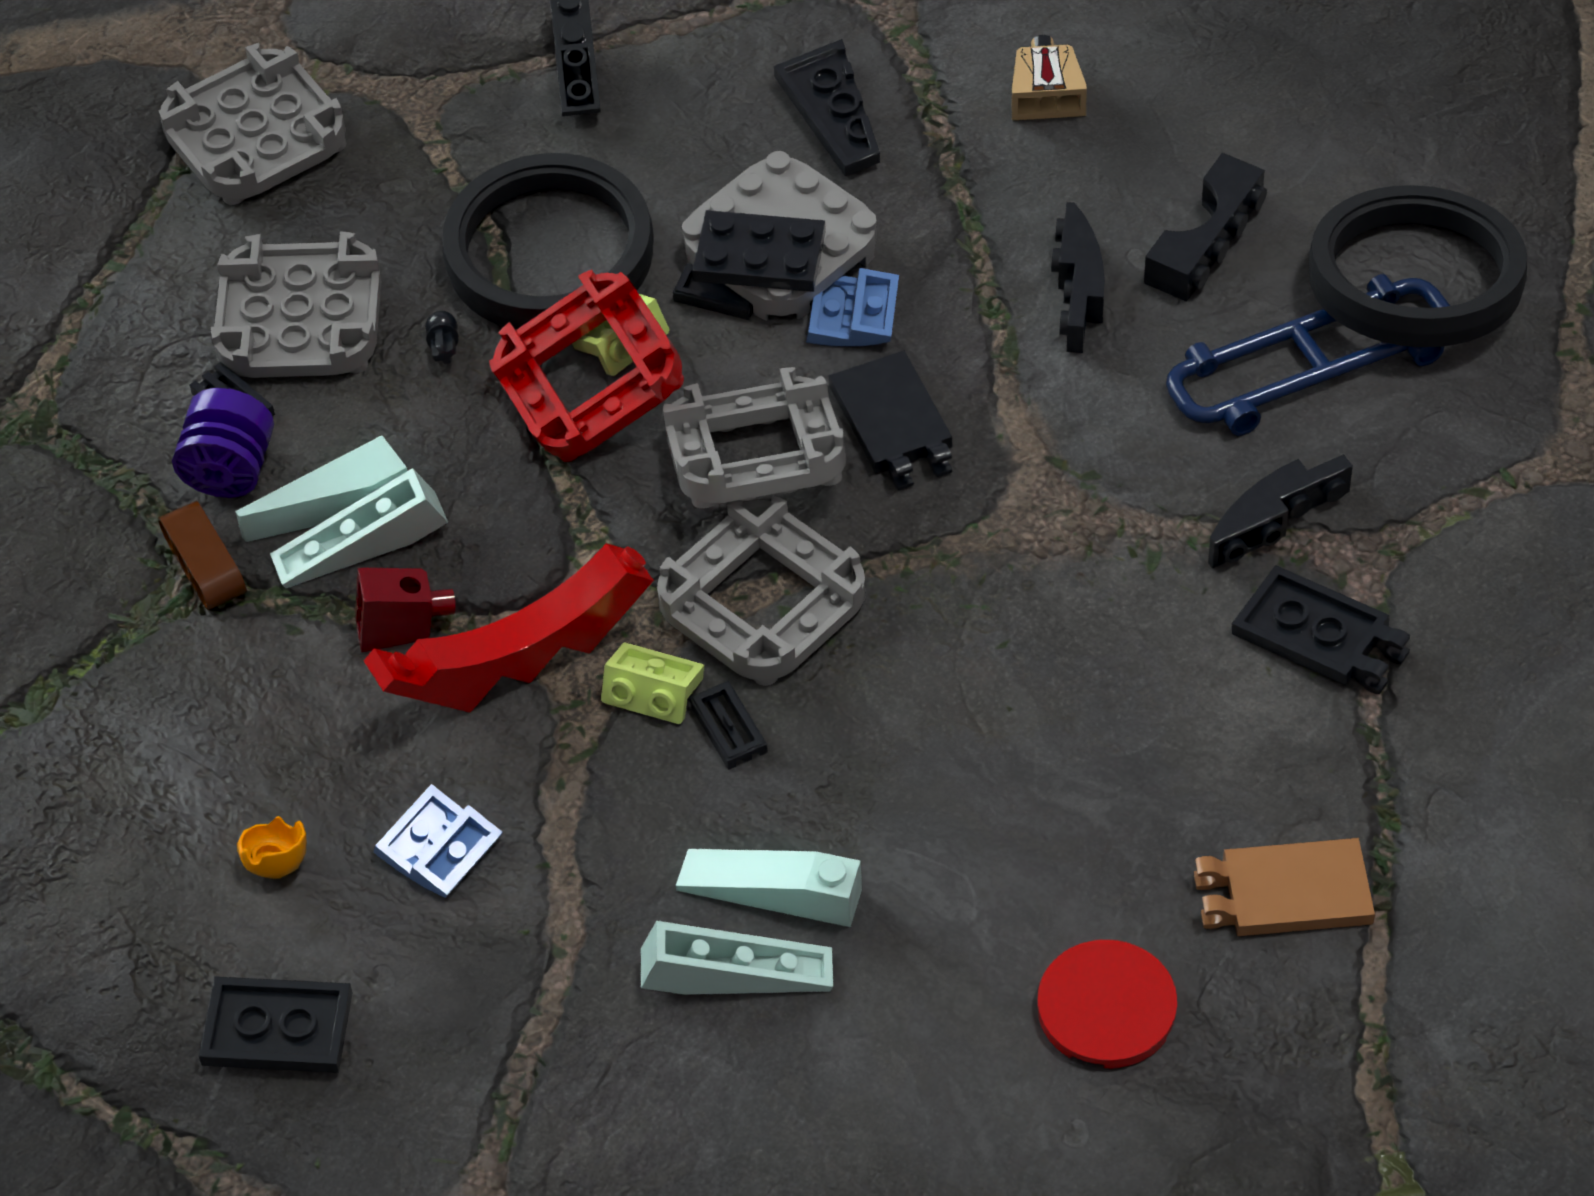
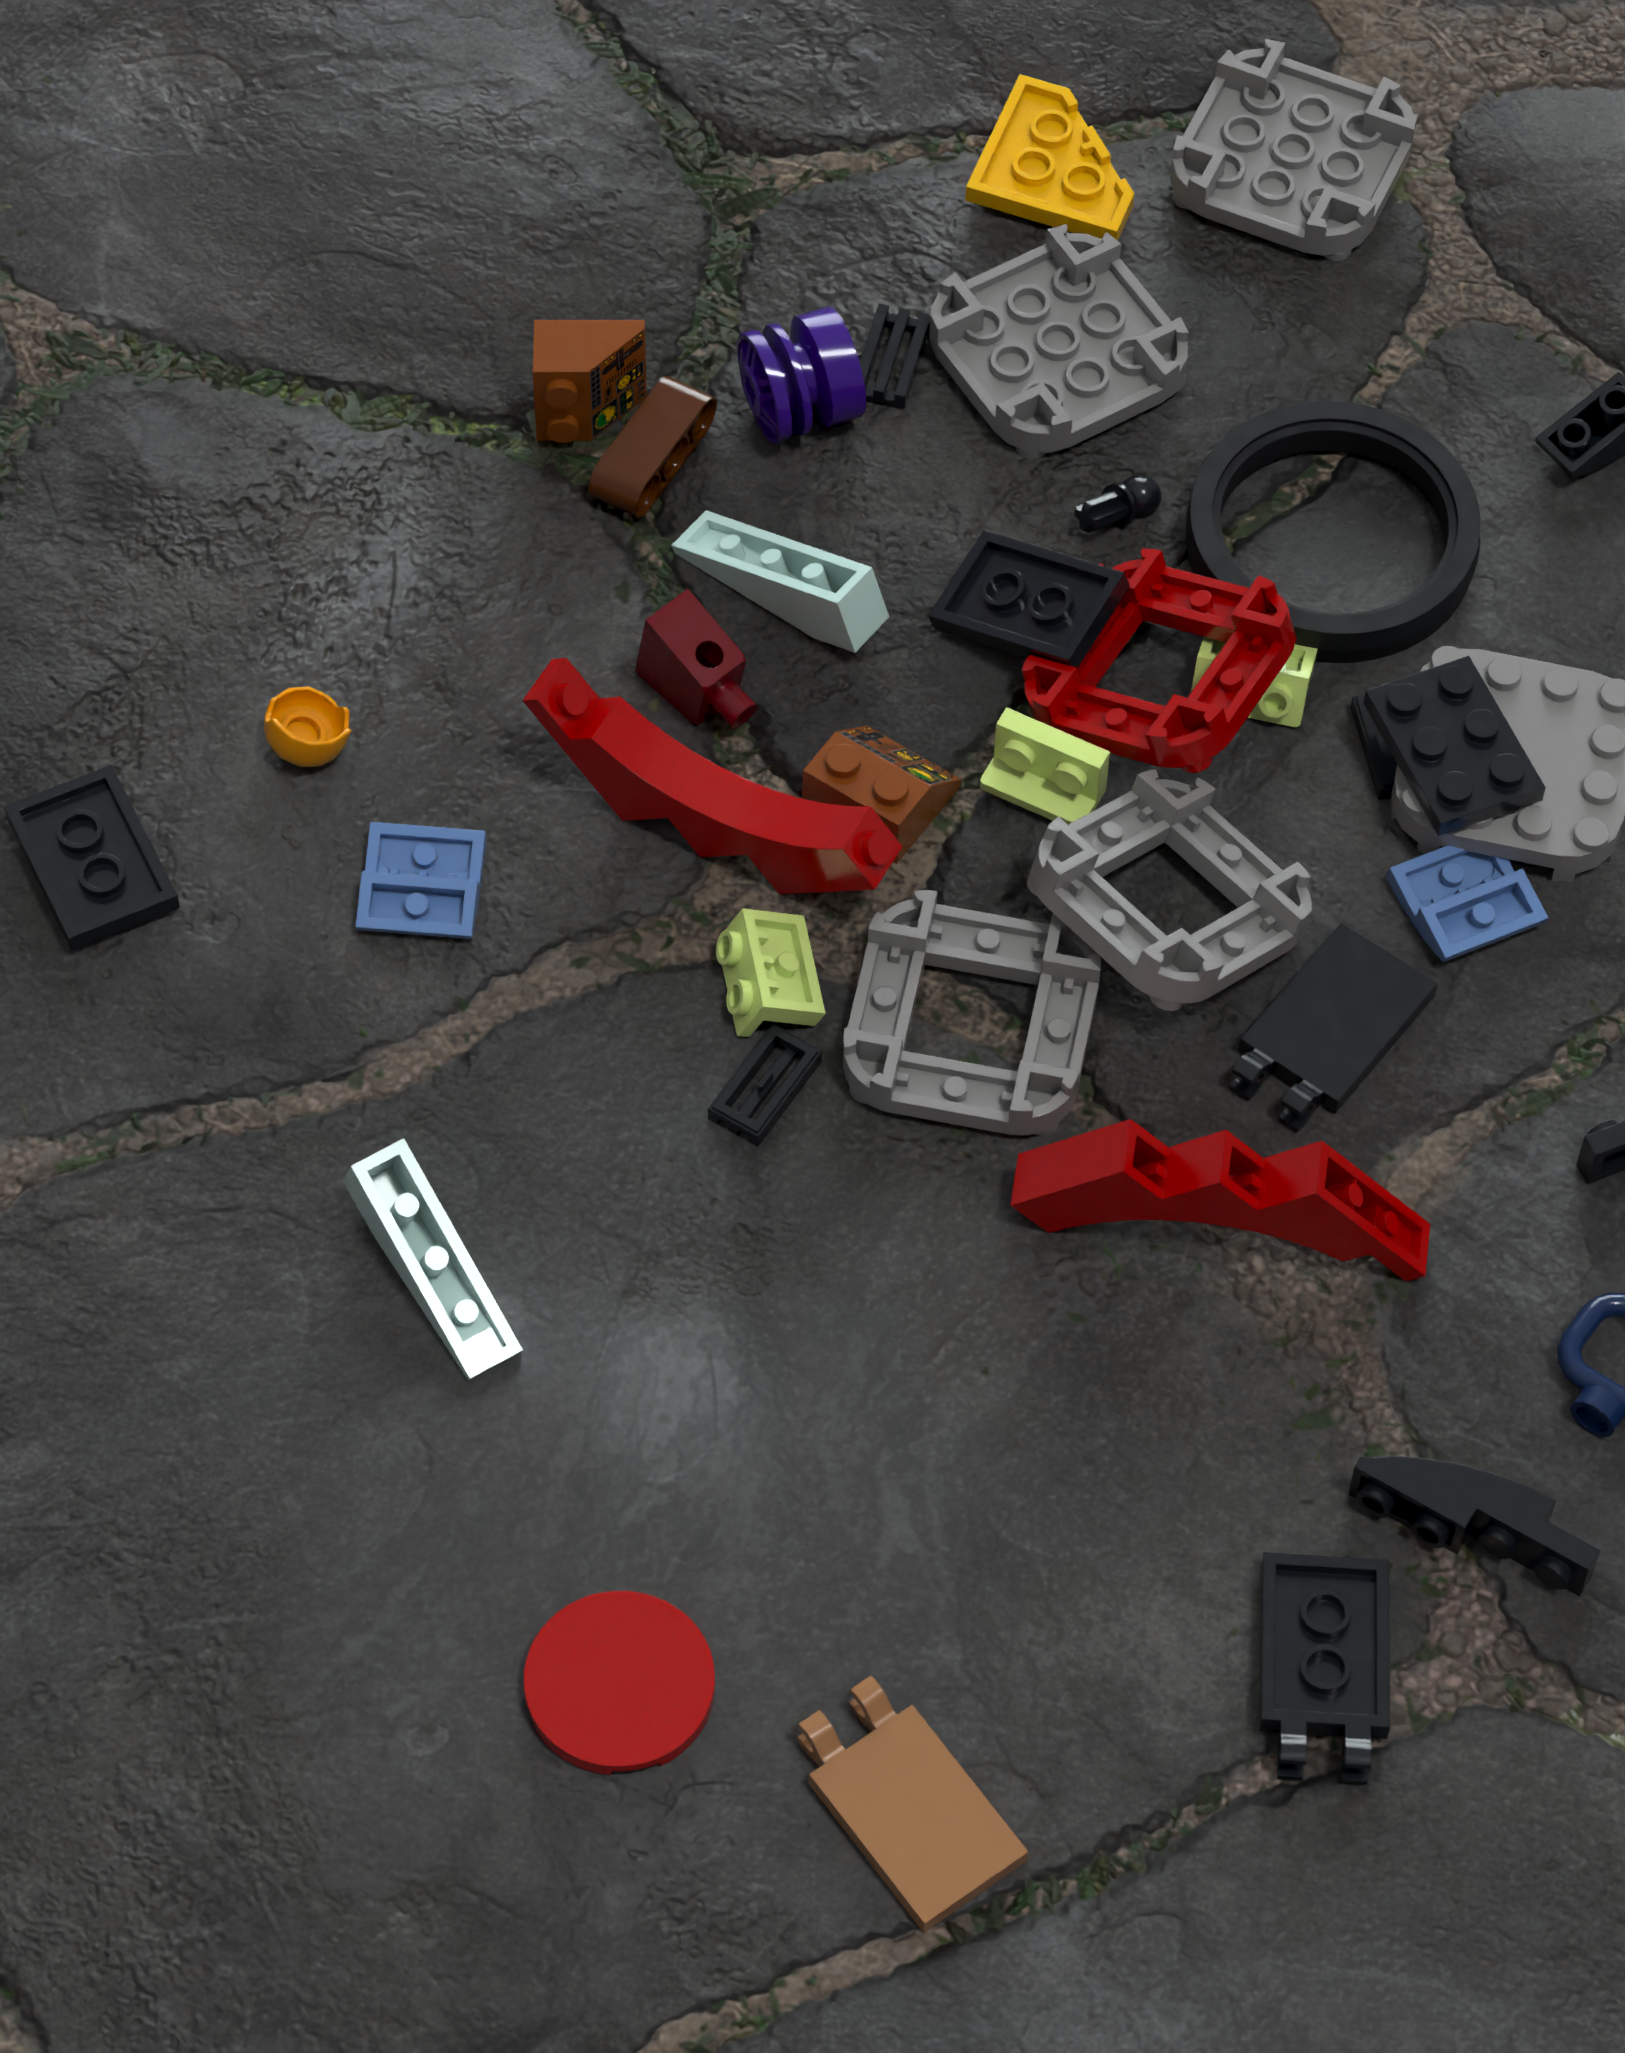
camera: 55 degrees right, 5 degrees up
(122, 563) = (586, 376): none -> dark orange slope
(157, 248) = (1050, 165): none -> yellow plate
(321, 492) = (818, 512): light aqua slope -> none
(485, 410) = (1029, 600): none -> black plate
(553, 555) = (874, 771): none -> dark orange slope
(614, 463) = (1045, 769): none -> yellowish green bracket
(780, 881) = (570, 1245): light aqua slope -> none
(950, 548) = (1295, 1195): none -> red arch

